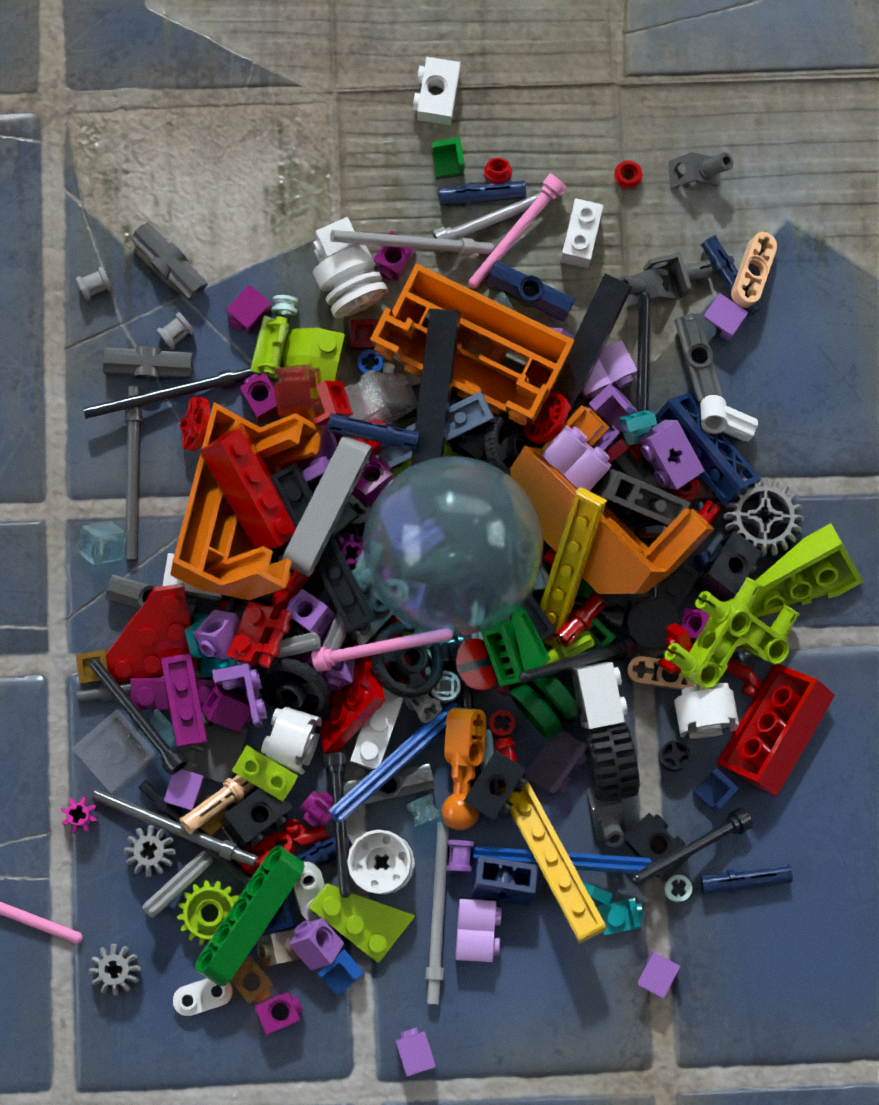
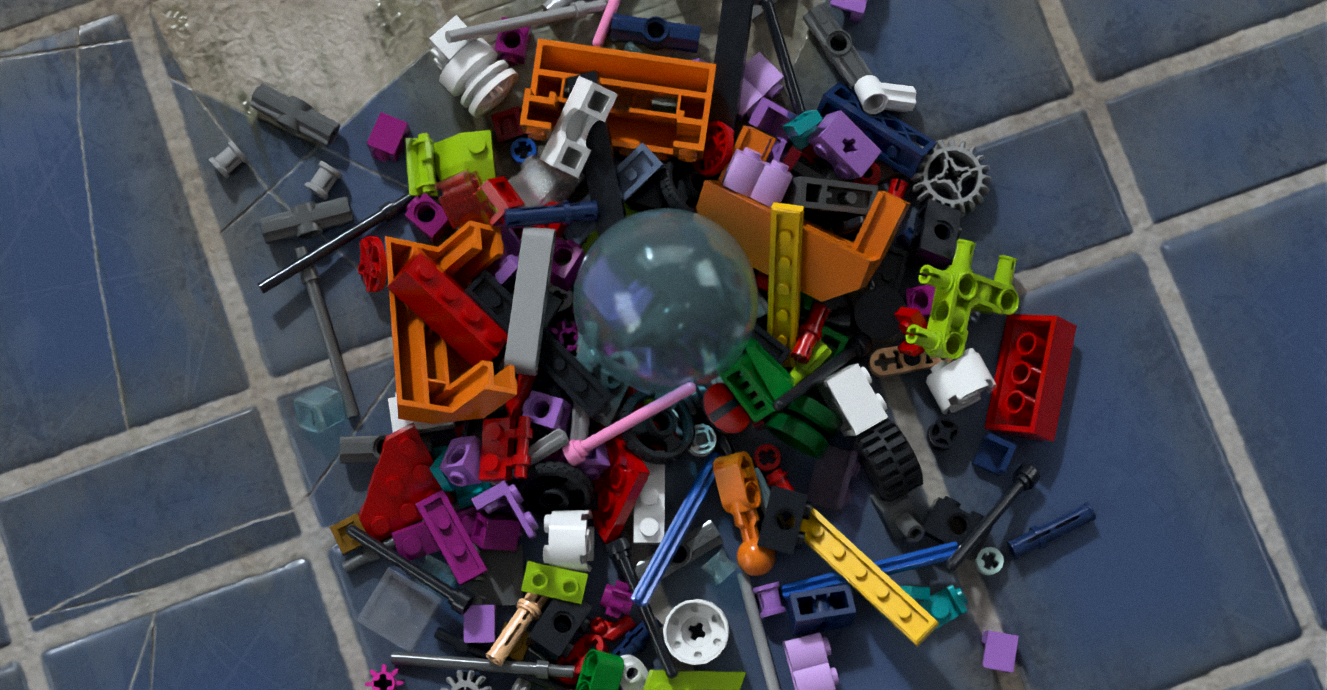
camera: 20 degrees left, 0 degrees up
(284, 305) = (422, 121): light aqua bush -> none
(410, 369) = (584, 107): none -> white arch
(422, 707) = (685, 467): light grey bush -> none
(747, 675) = (987, 335): red arm -> none
(808, 571) = (1012, 214): lime wedge -> none

